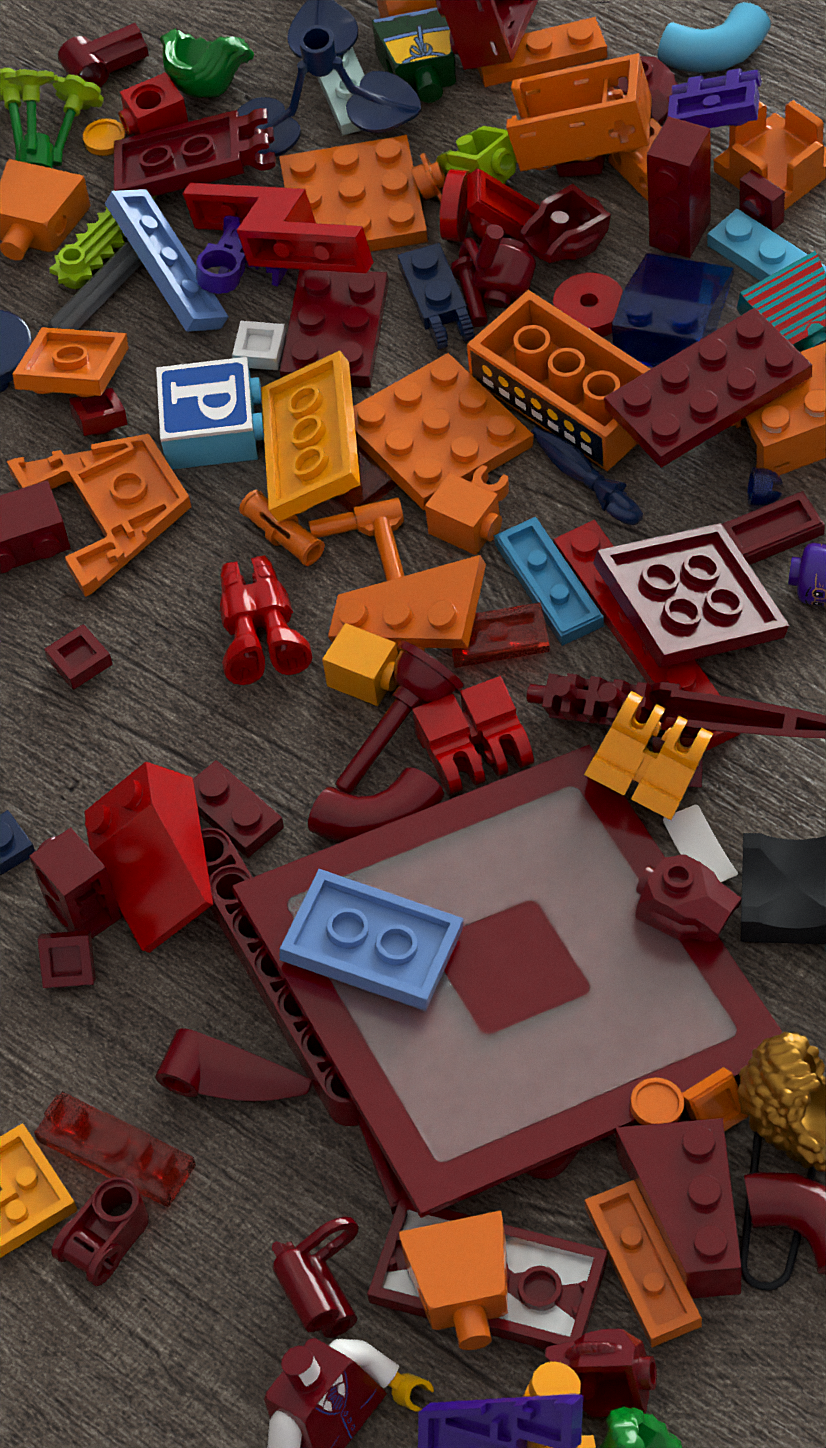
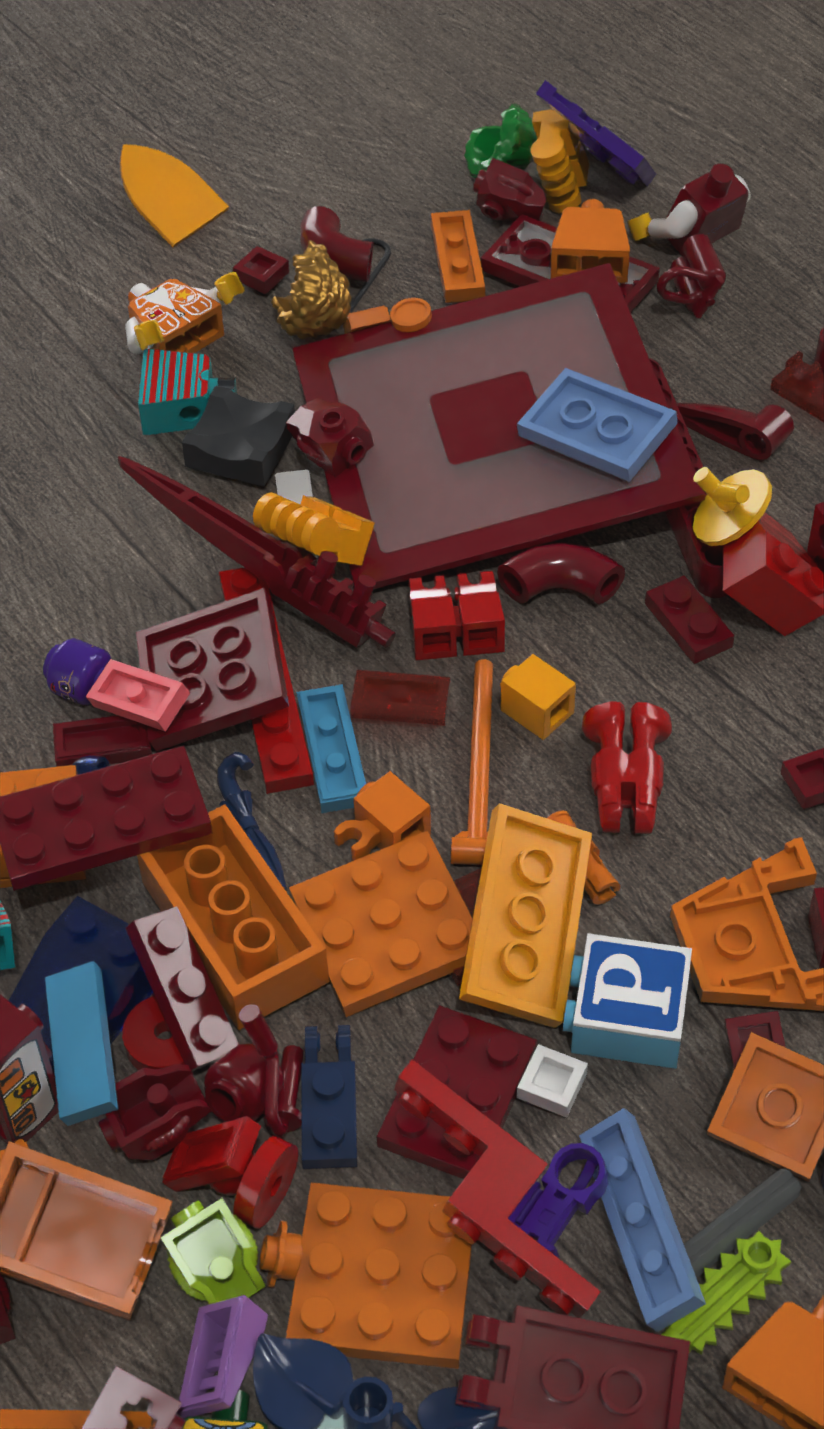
camera: 170 degrees left, 5 degrees down
(197, 859) = (730, 505): none -> yellow shield
(419, 681) = (486, 643): dark red piece -> none
(422, 608) = (473, 721): orange wing -> none
(439, 125) = (223, 1343): none -> medium lavender slope
(589, 304) = (182, 987): none -> plate
(639, 236) = (80, 1044): none -> dark azure tile
(690, 1197) = (409, 262): dark red wedge -> none
(746, 541) = (138, 695): none -> coral plate

